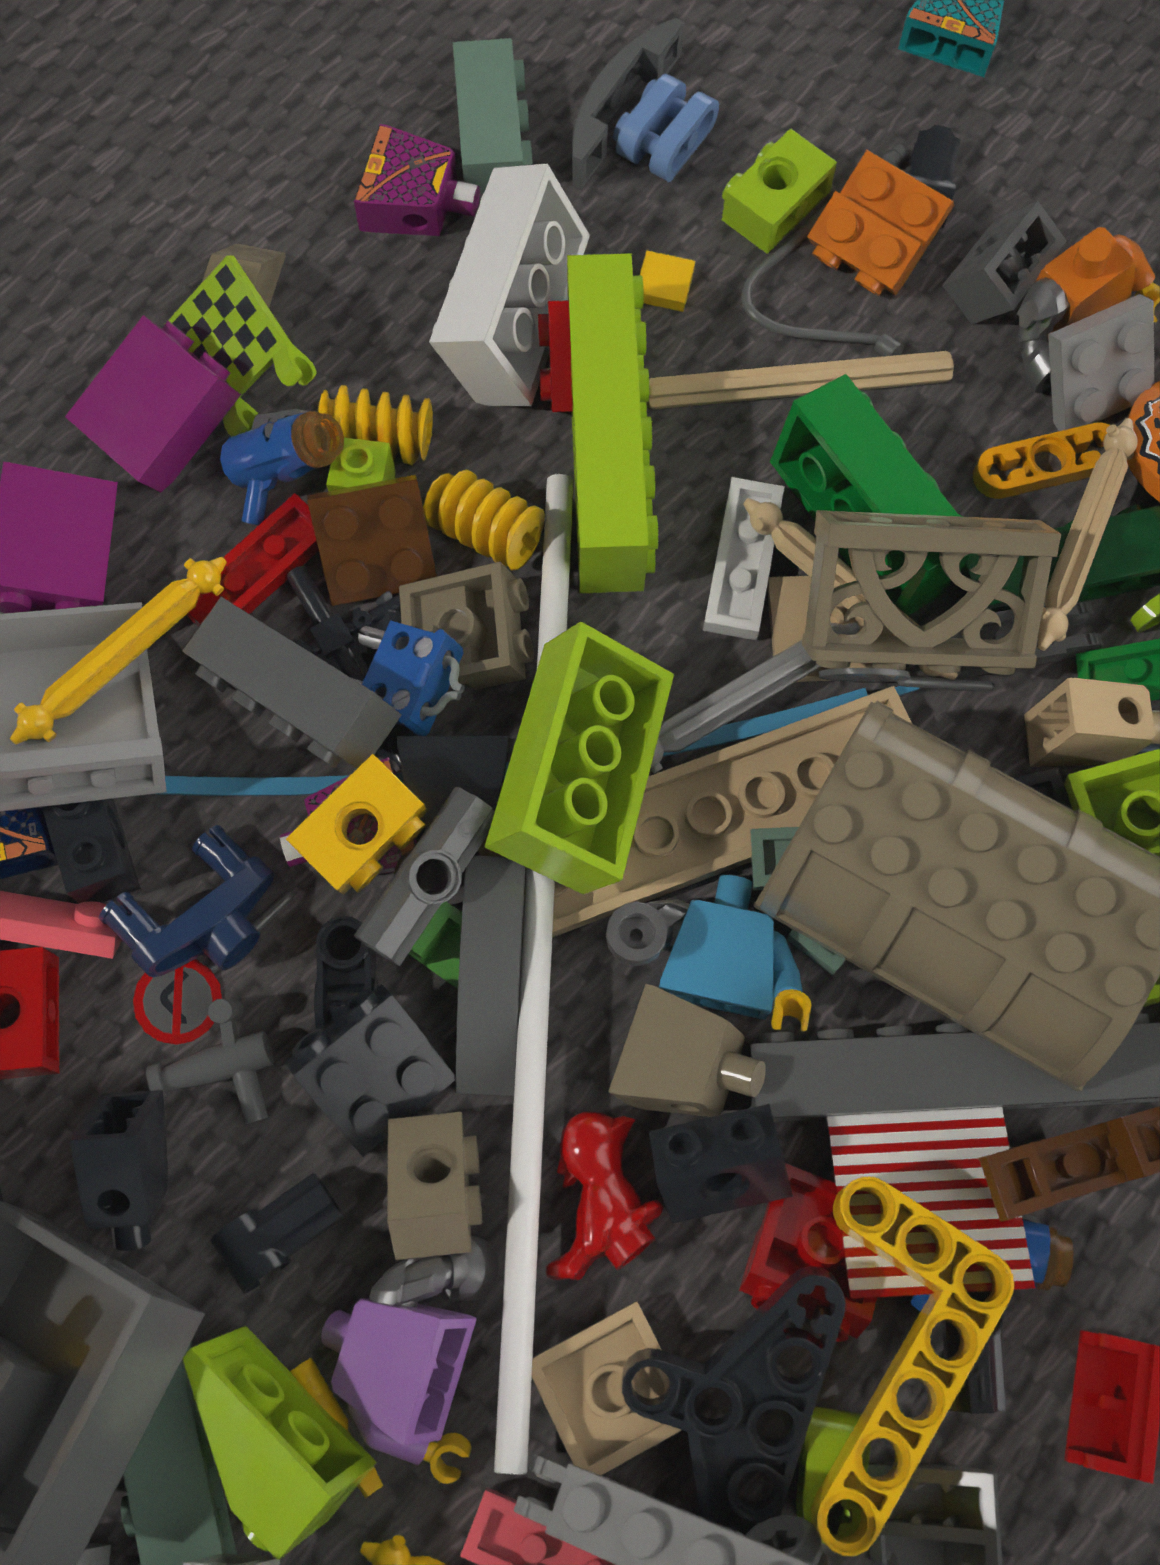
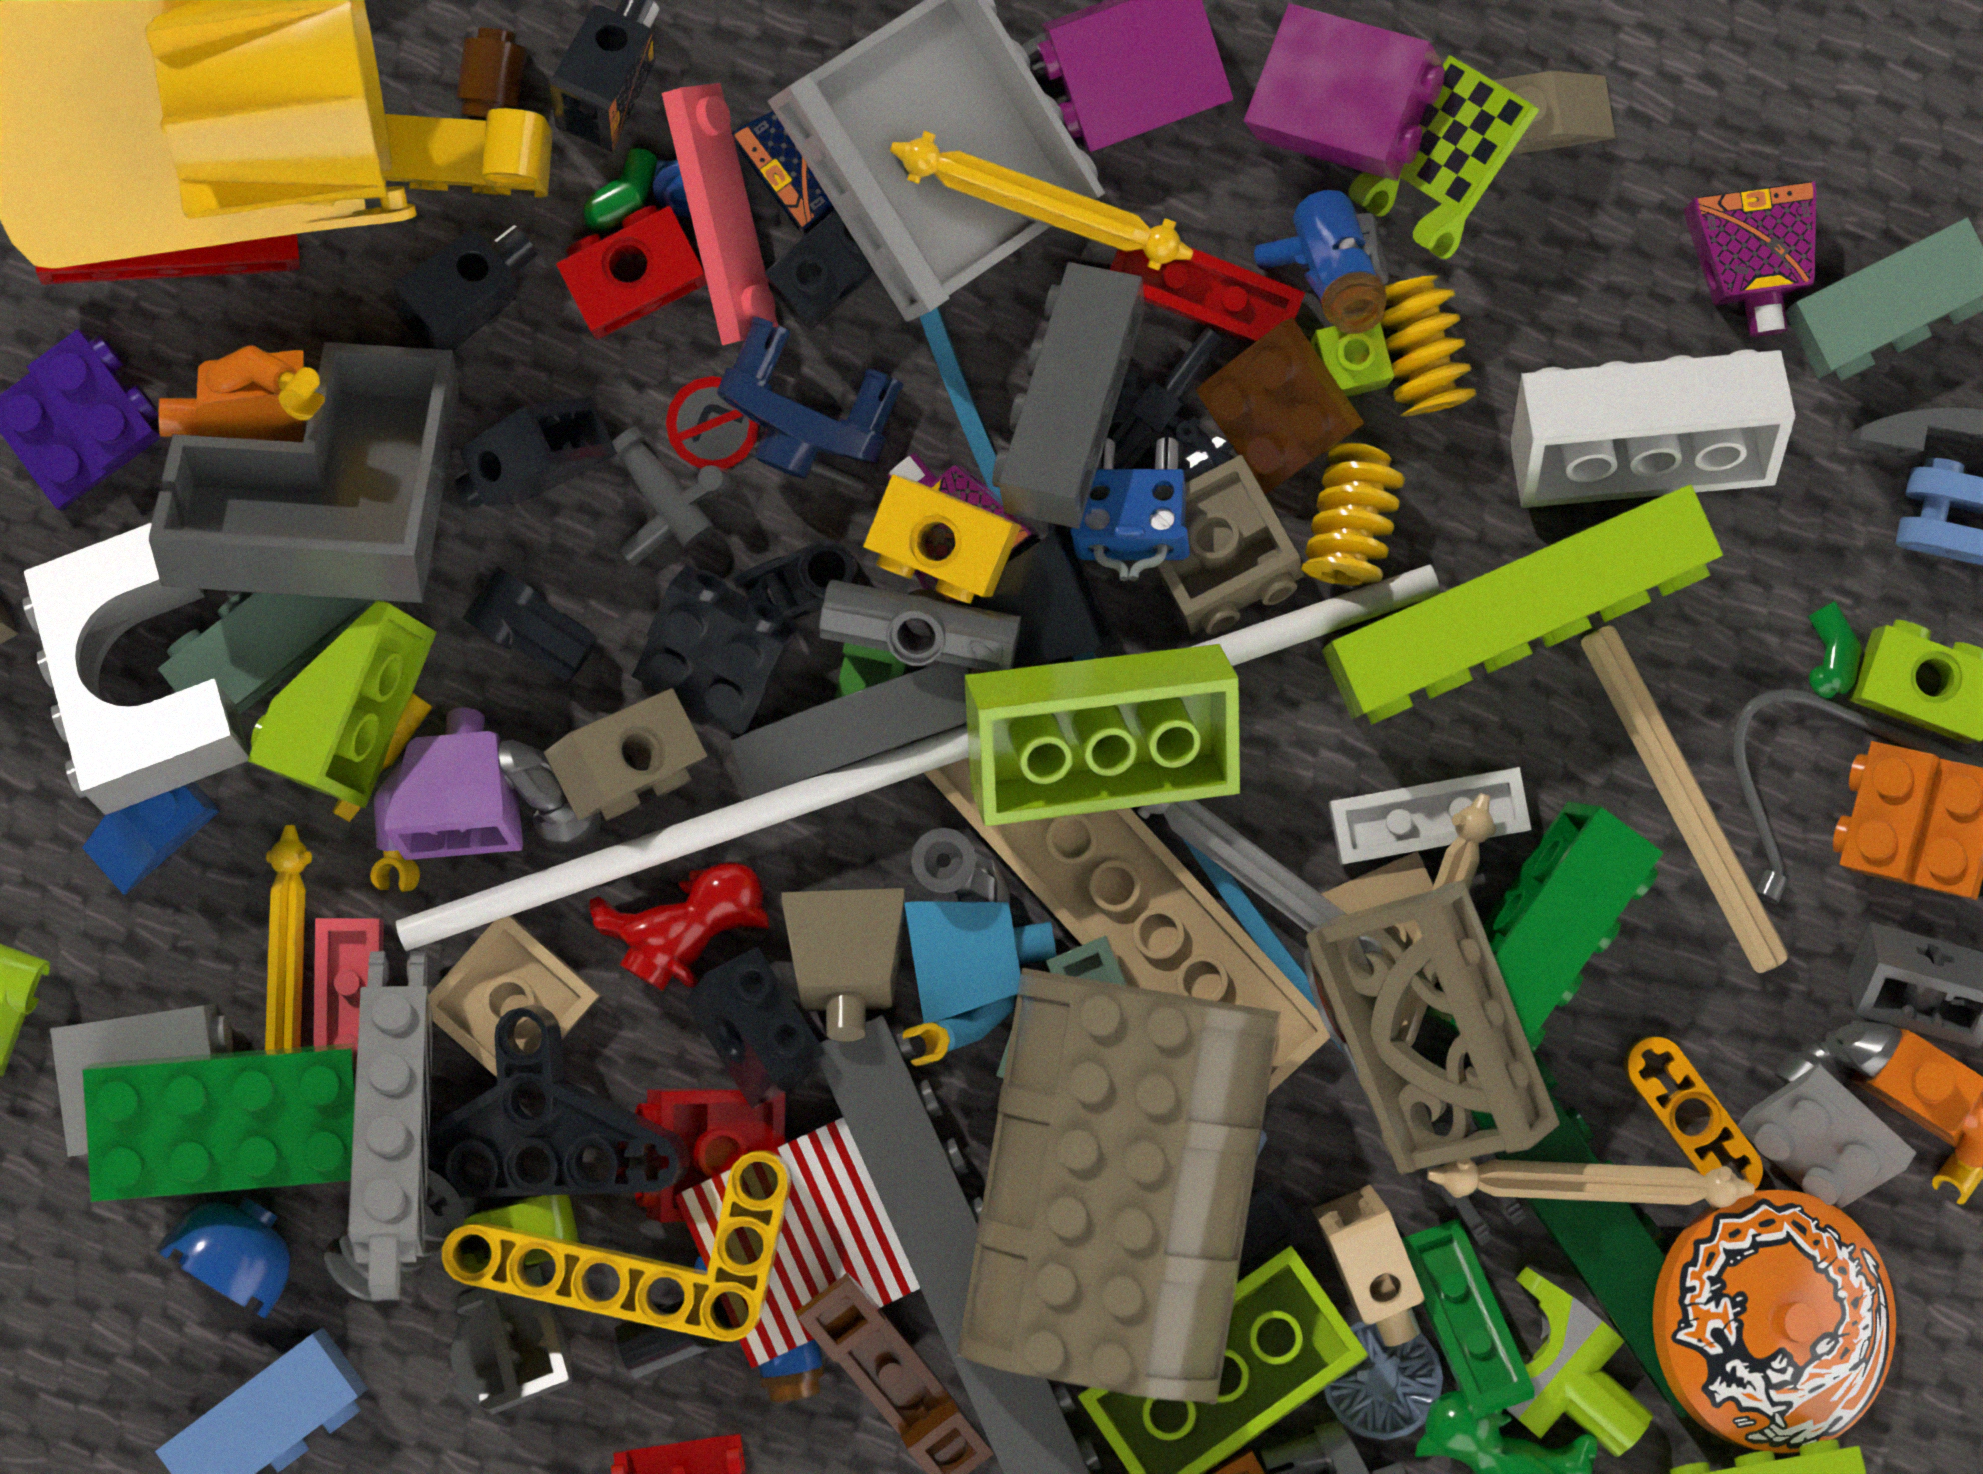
camera: 75 degrees right, 15 degrees up
(555, 332) = (1606, 502): red plate -> none
(666, 280) = (1755, 594): yellow tile -> none
(728, 240) = (1841, 654): none -> green arm

